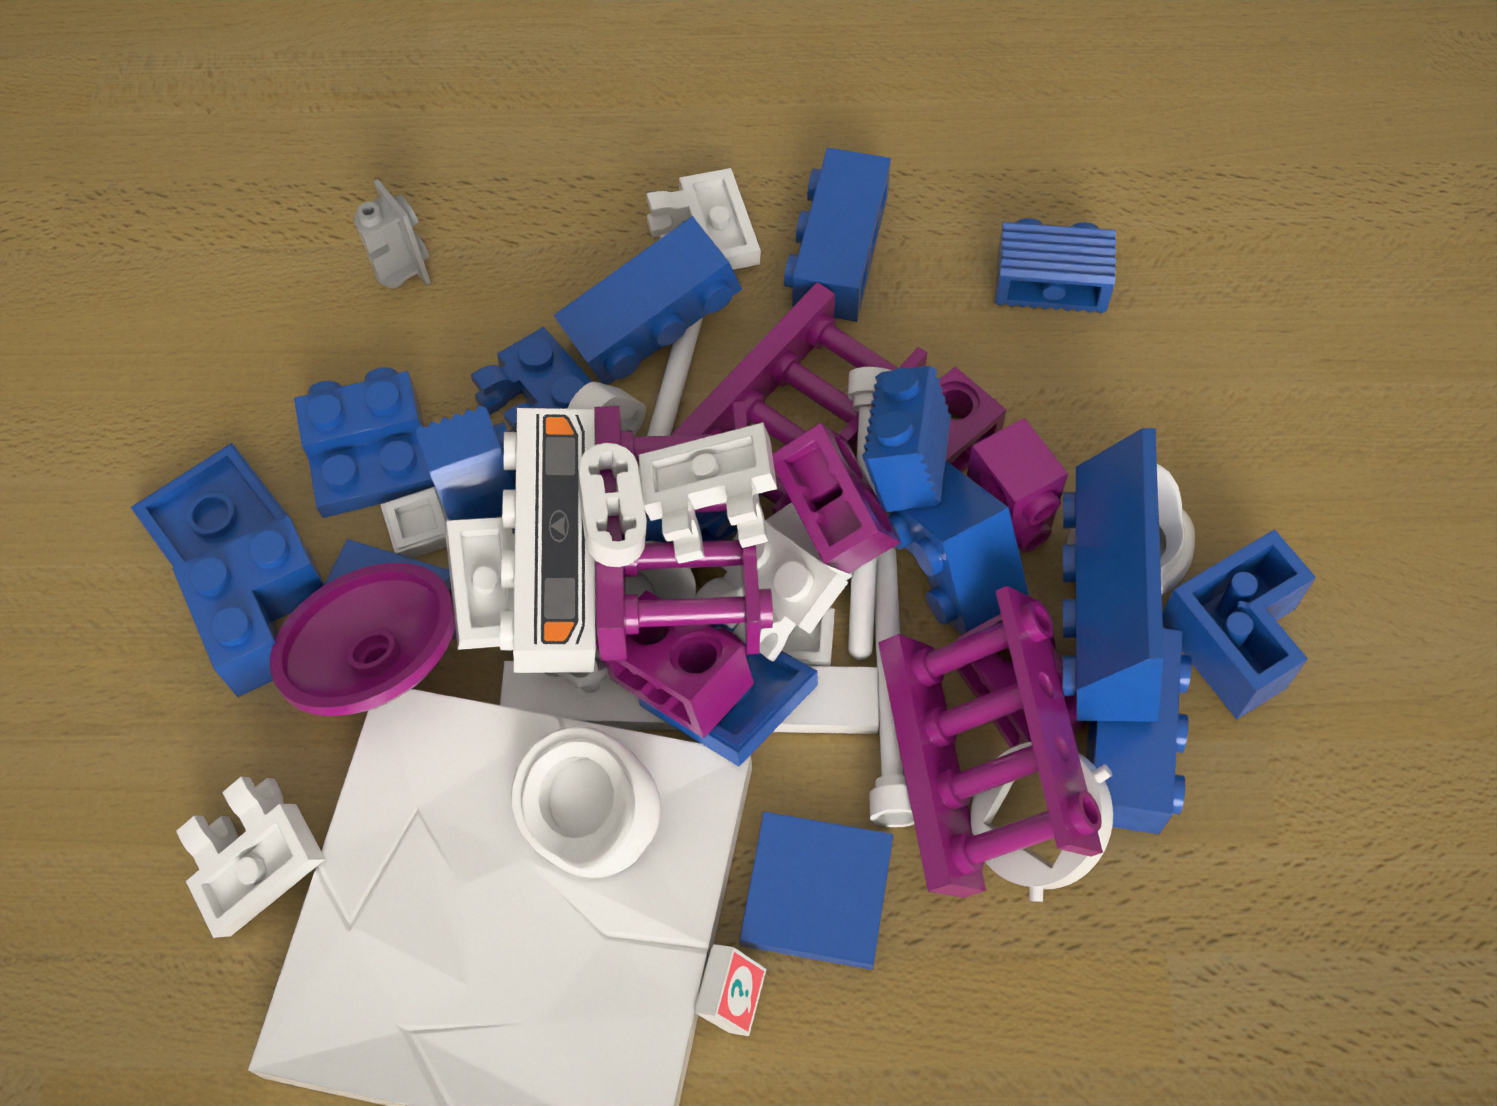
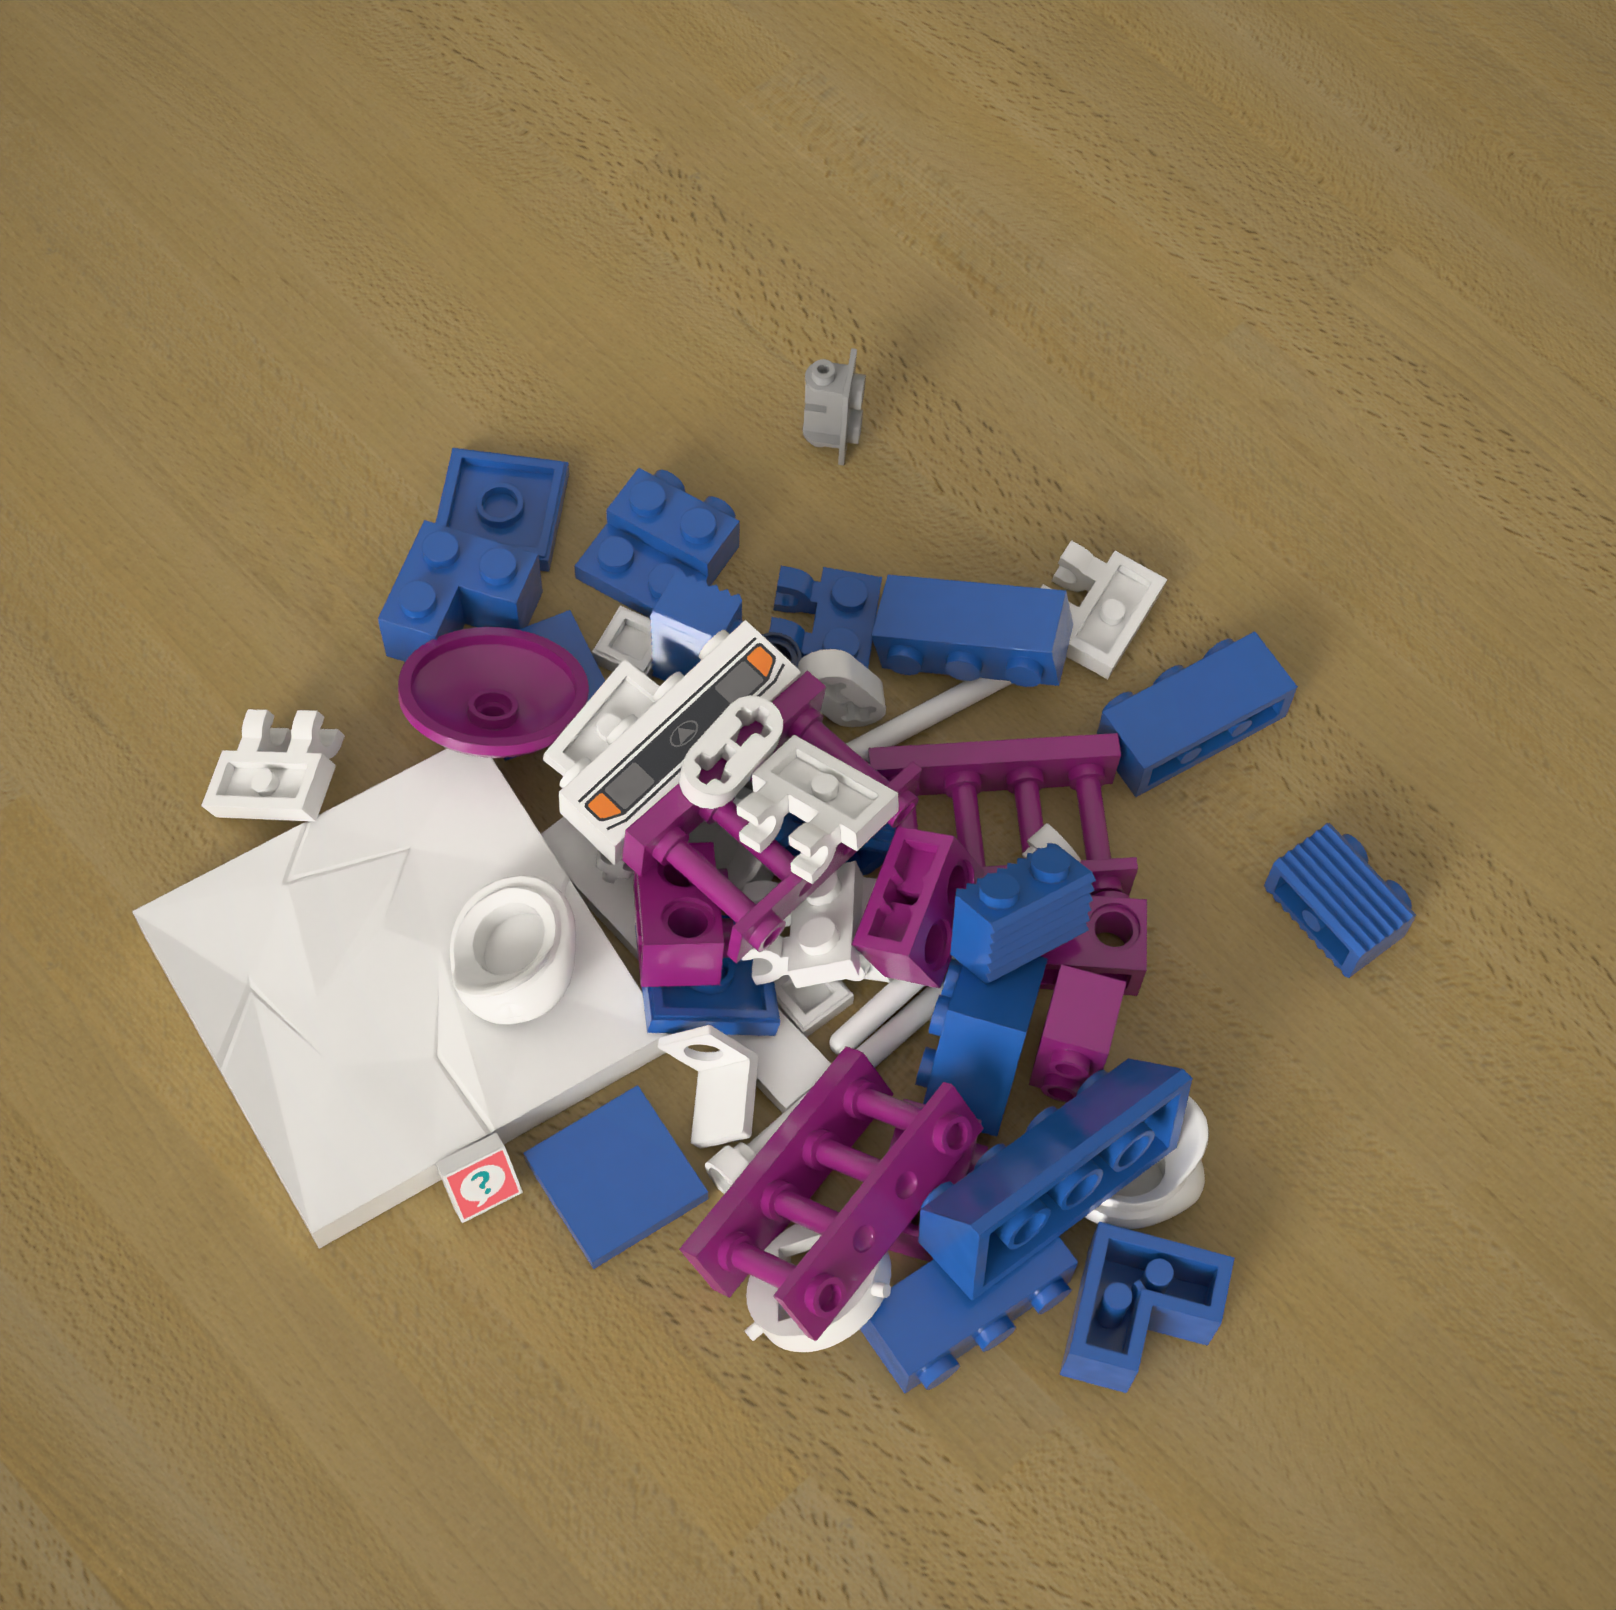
camera: 40 degrees right, 0 degrees up
(823, 755) = (723, 1084): none -> white bracket

